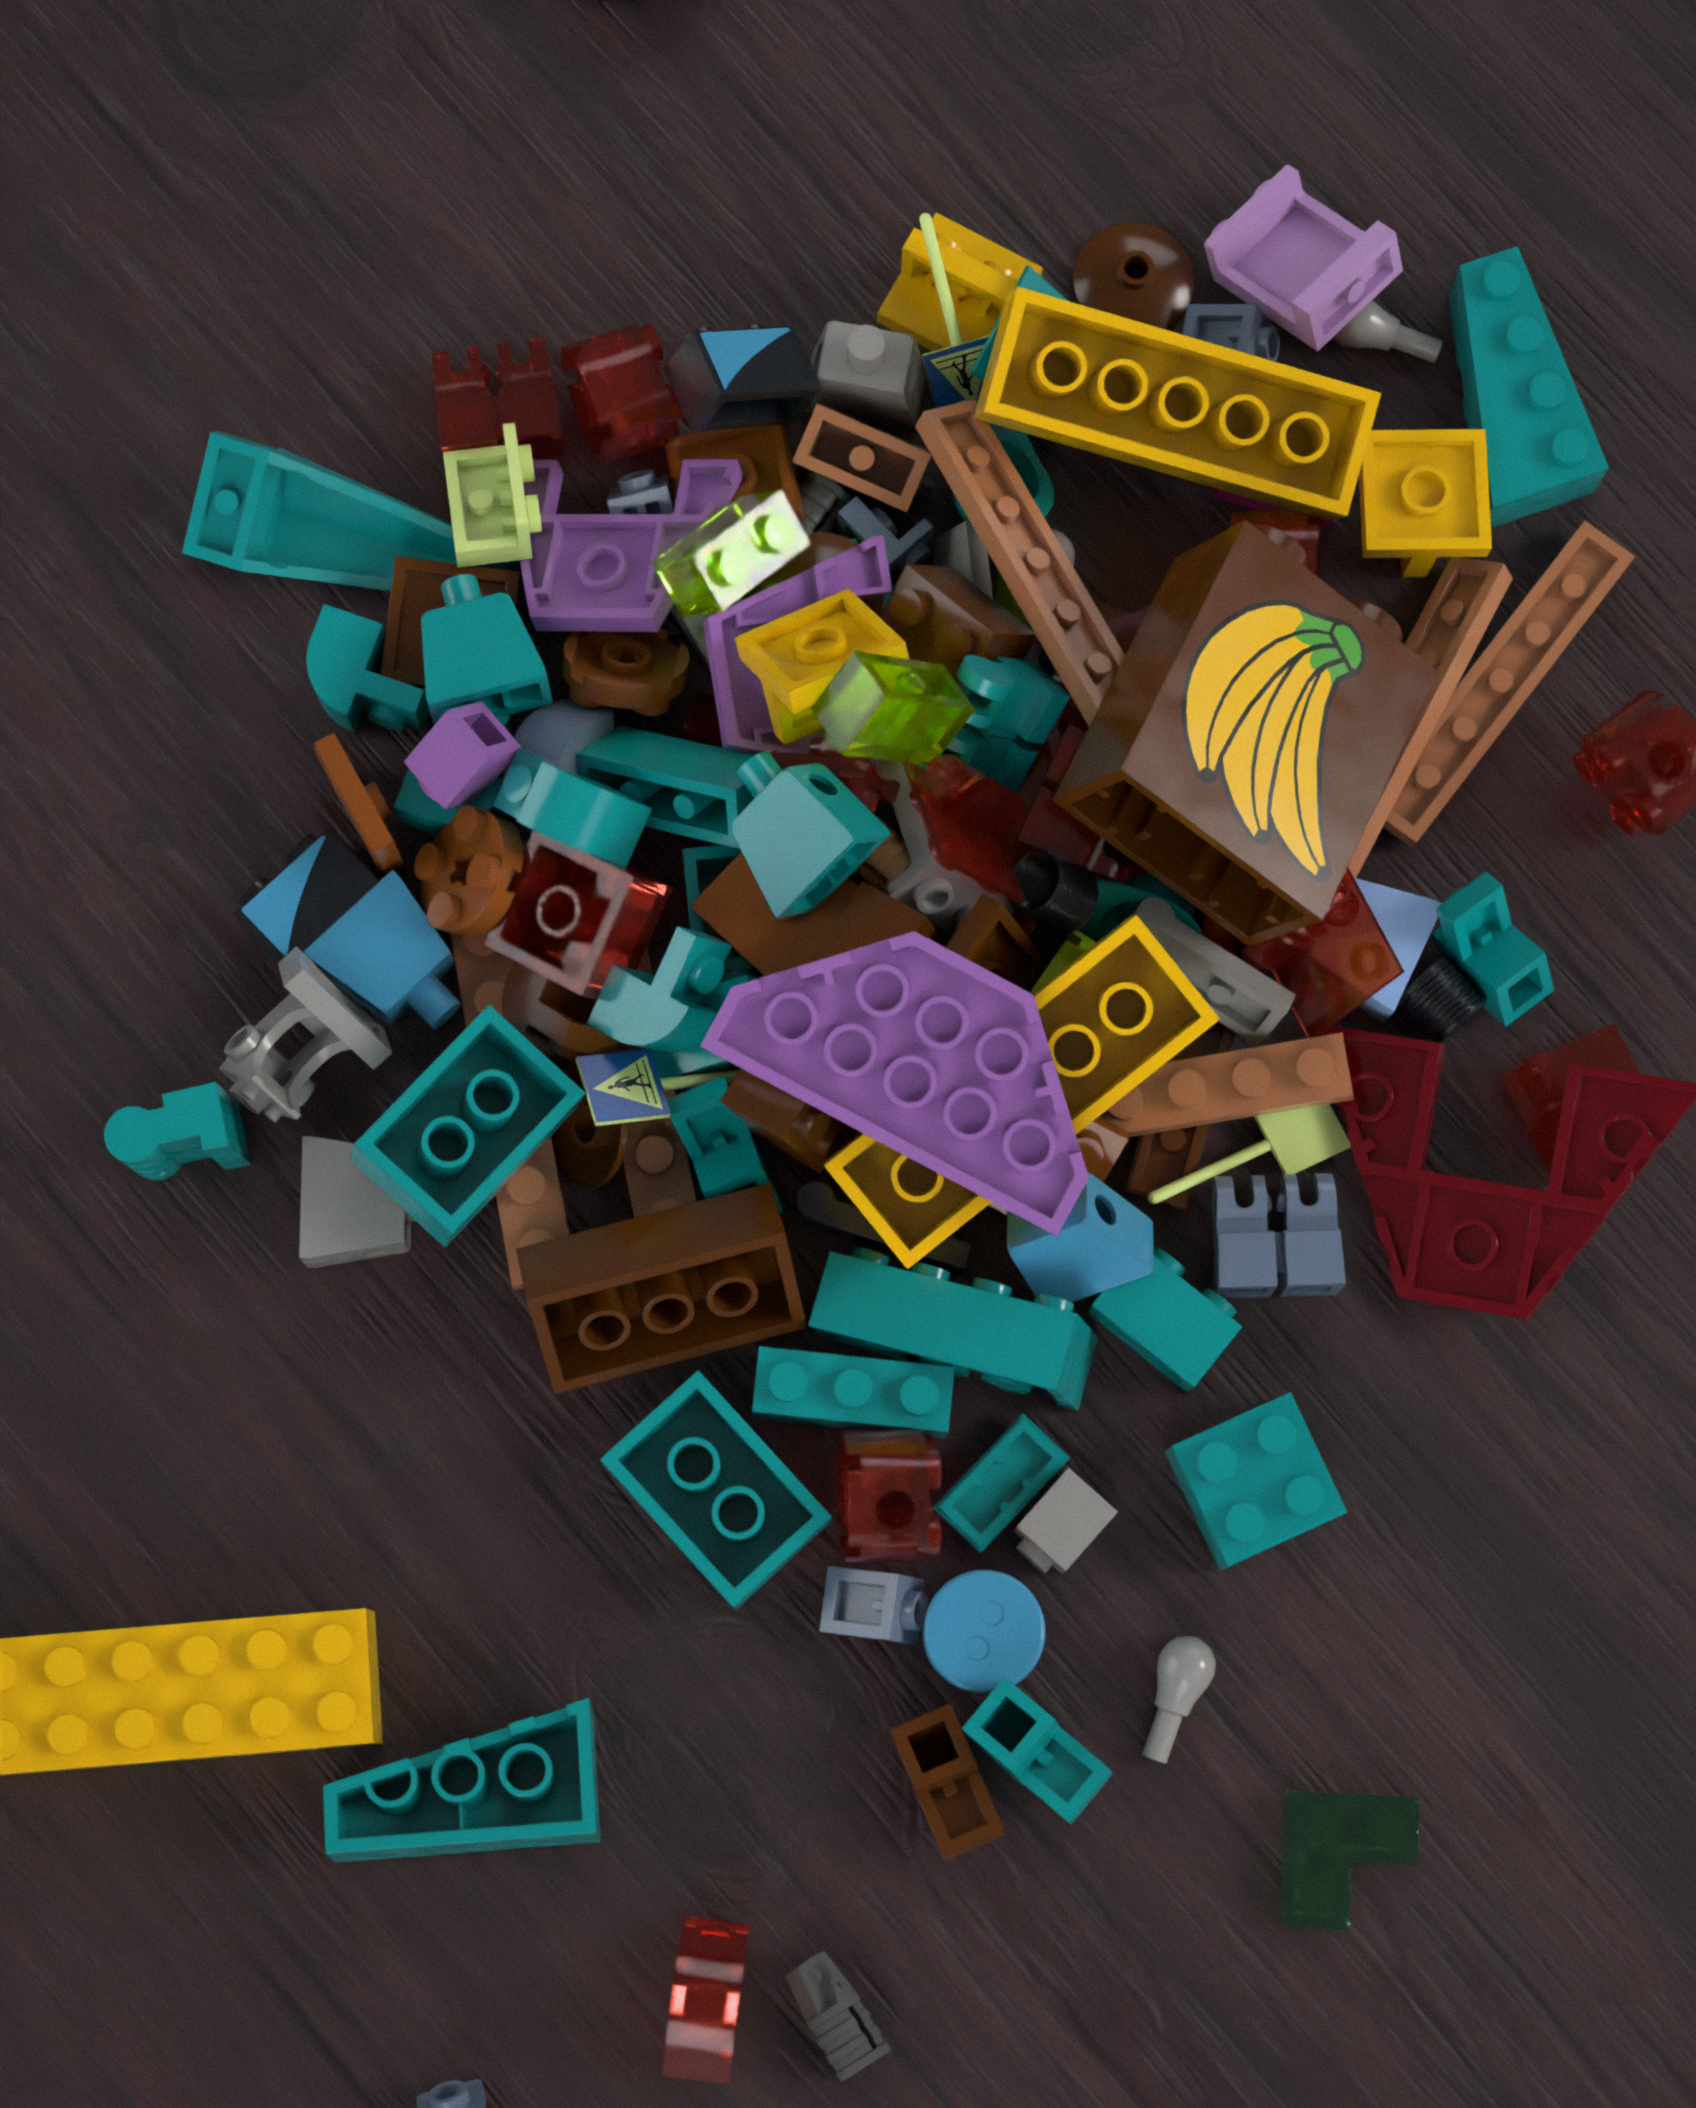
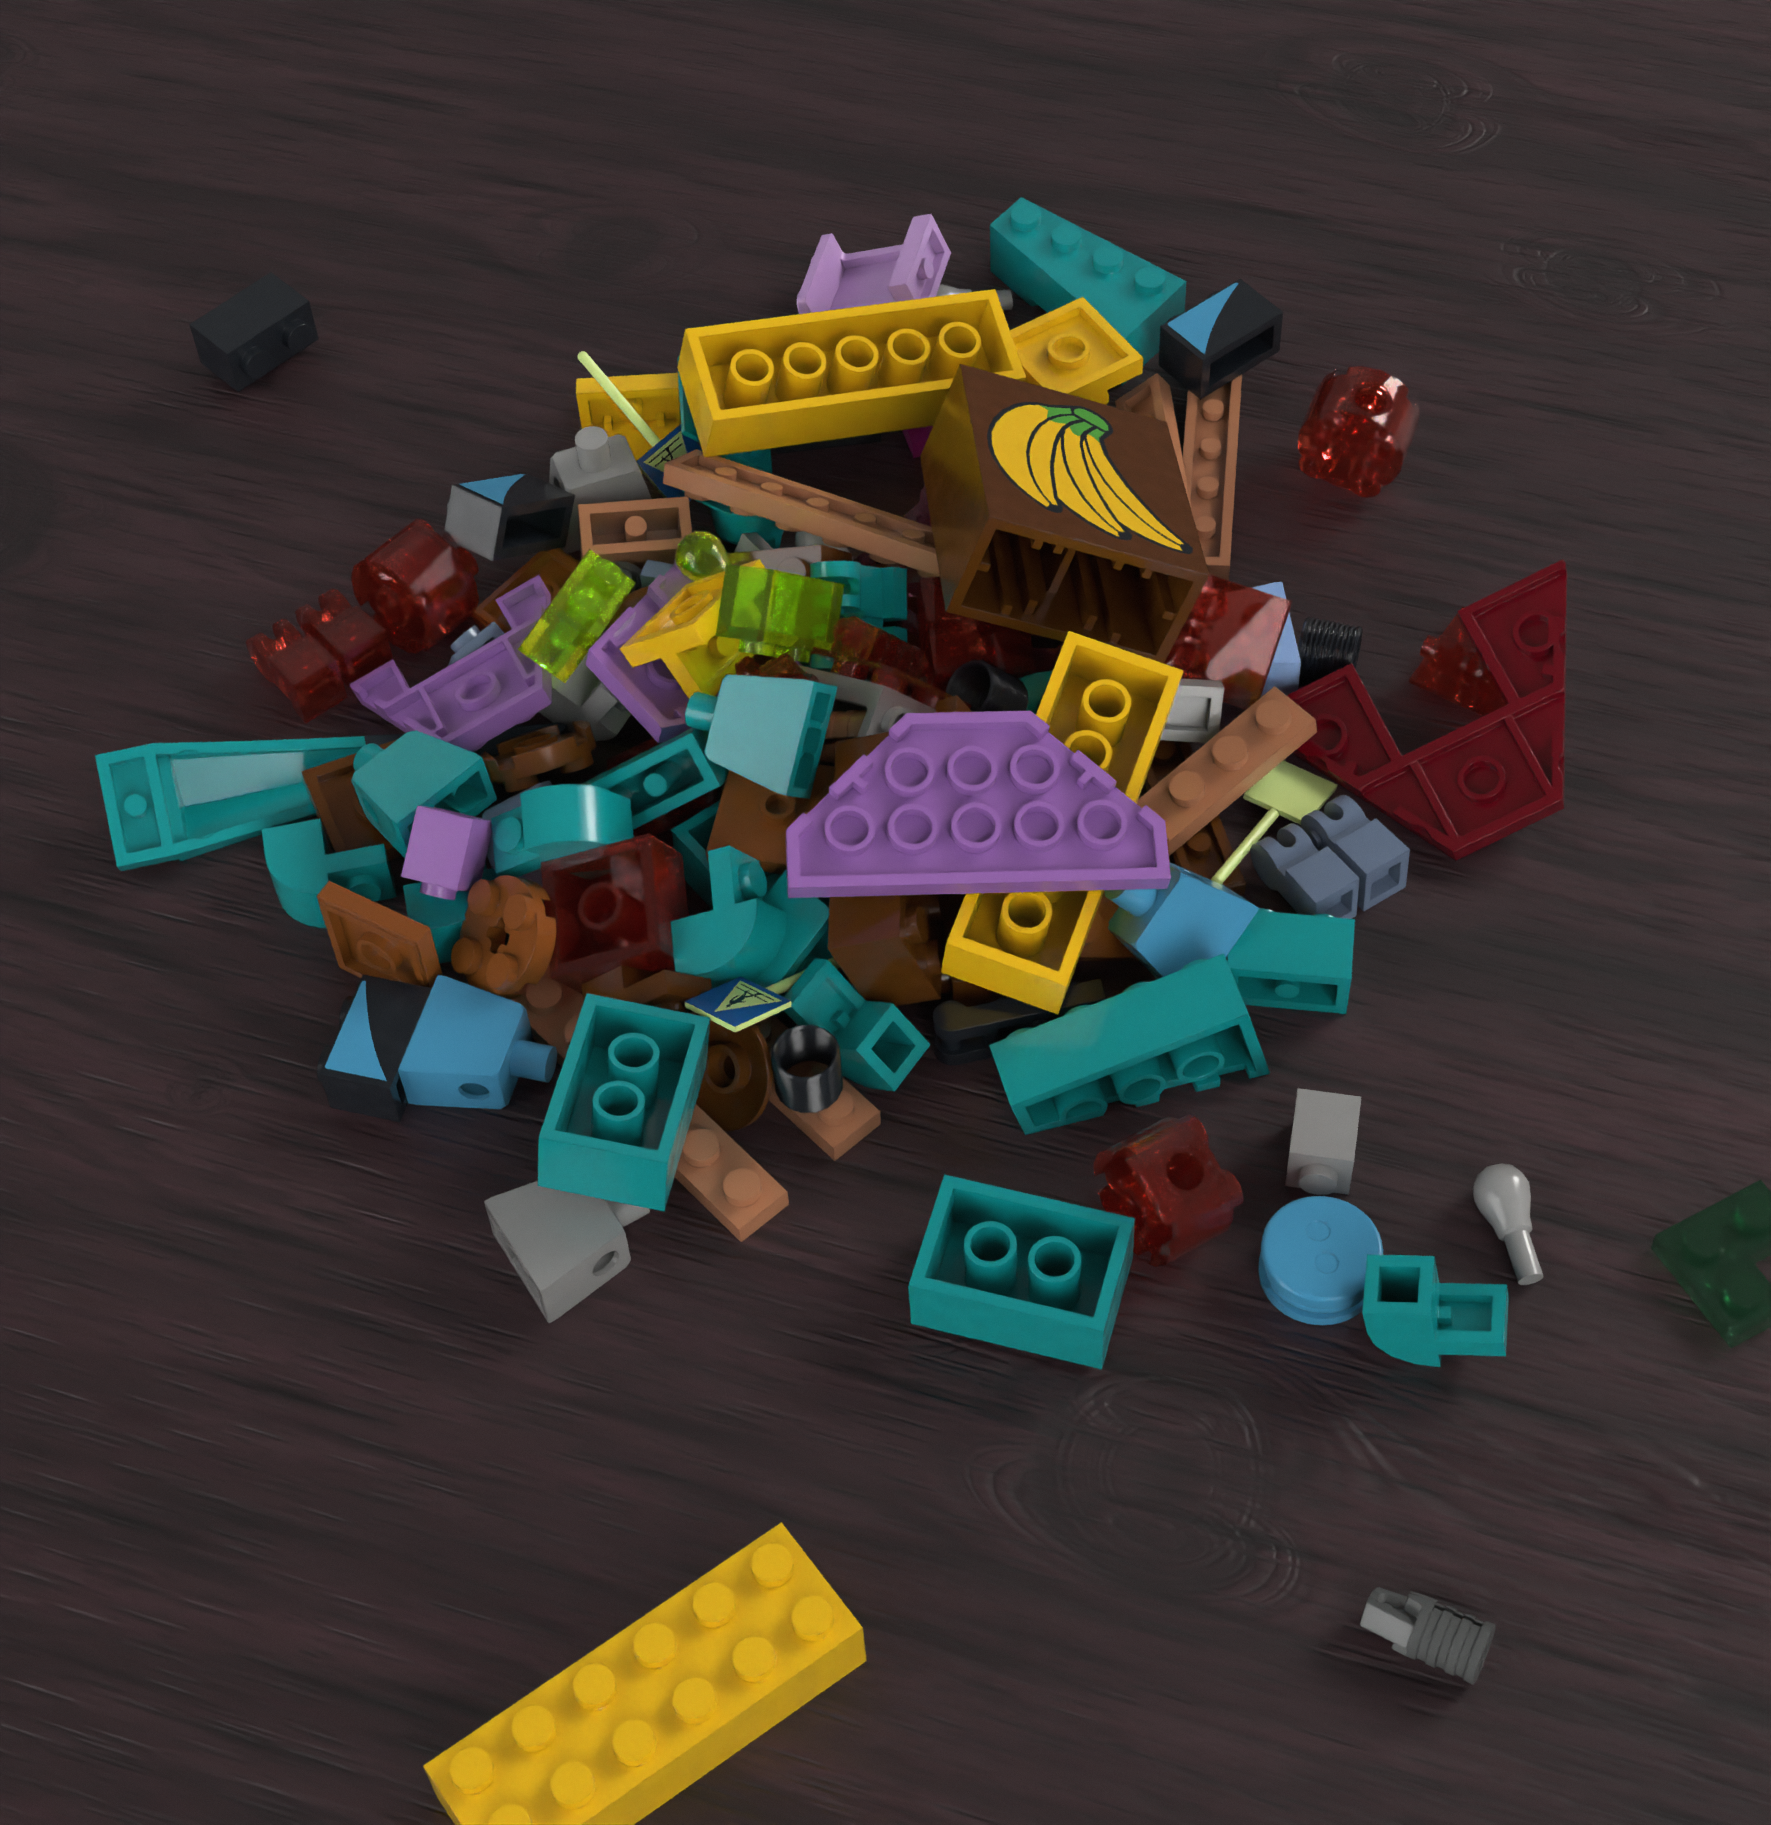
camera: 25 degrees left, 25 degrees down
(189, 1128) = (373, 1257): teal legs -> none
(280, 1085) = (444, 1108): light grey tile -> none
(474, 1795) = (982, 1633): teal wedge -> none
(489, 501) = (361, 697): yellowish green bracket -> none
(644, 1149) = (800, 1045): none -> black piece
(661, 1288) = (869, 1141): reddish brown brick -> none
(705, 2000) = (1312, 1683): clear red brick -> none
(852, 1392) = (1056, 1147): teal brick -> none
(873, 1605) = (1214, 1291): sand blue bracket -> none
(881, 577) = (701, 555): none -> clear neon green piece
(947, 1782) = (1370, 1383): reddish brown brick -> none
(1001, 1483) = (1254, 1141): teal plate -> none
(1255, 1481) = (1449, 1028): teal brick -> none
(1492, 951) = (1348, 597): teal brick -> none
(1592, 561) = (1220, 338): none -> black brick

